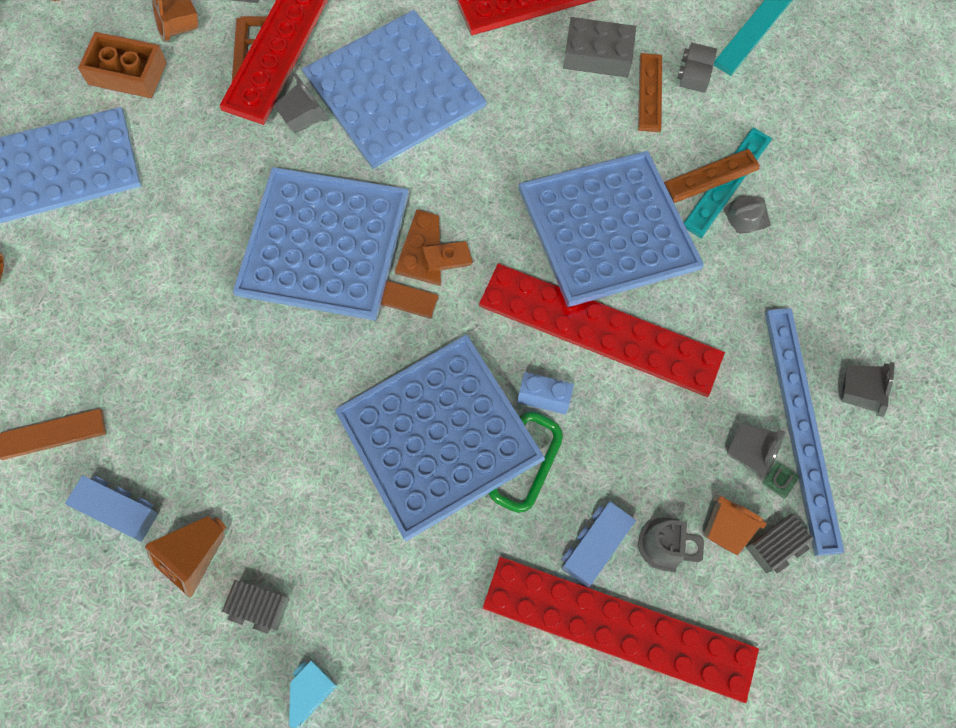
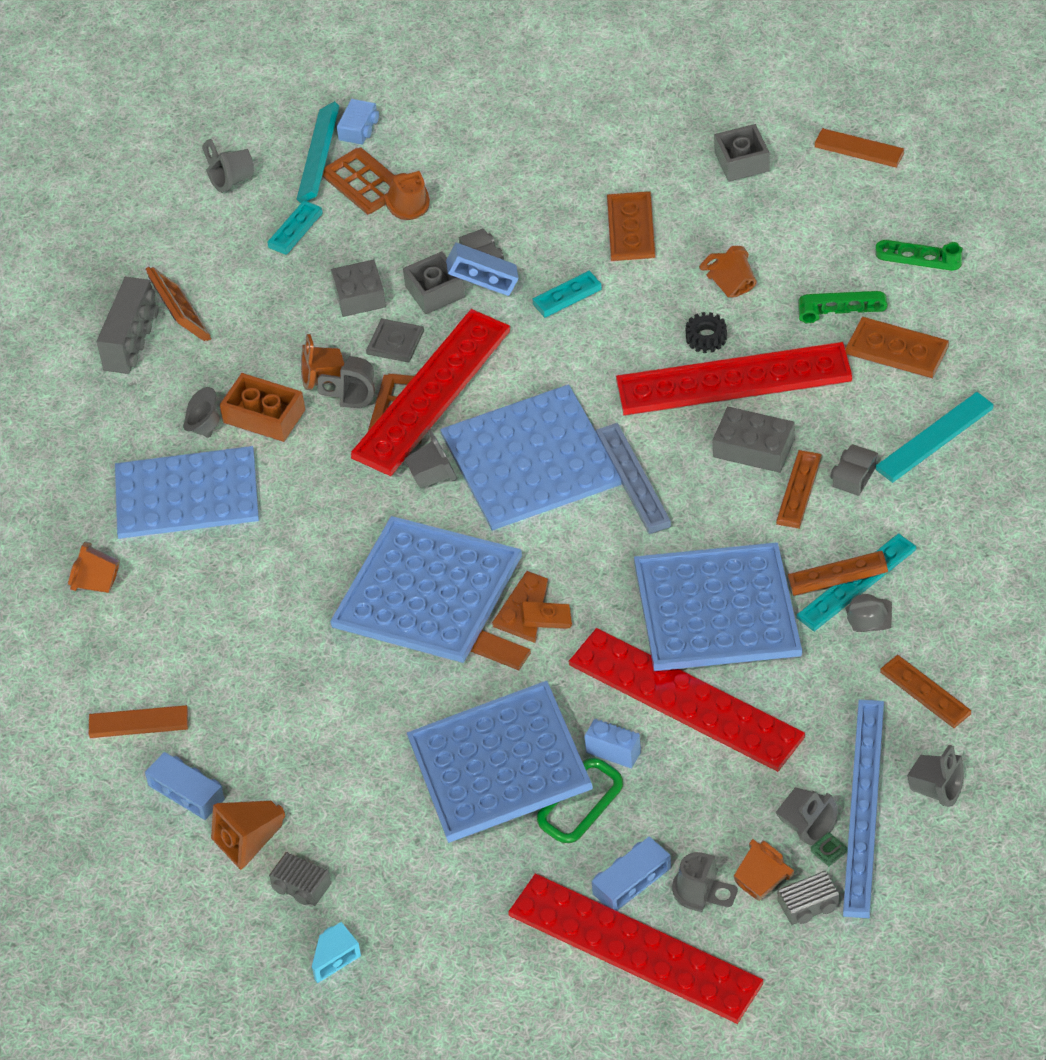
camera: 20 degrees right, 20 degrees down
(62, 78) = (201, 413): none -> dark grey piece
(209, 32) = (354, 386): none -> dark grey container
(497, 100) = (634, 479): none -> sand blue plate
(822, 290) = (925, 691): none -> dark orange tile

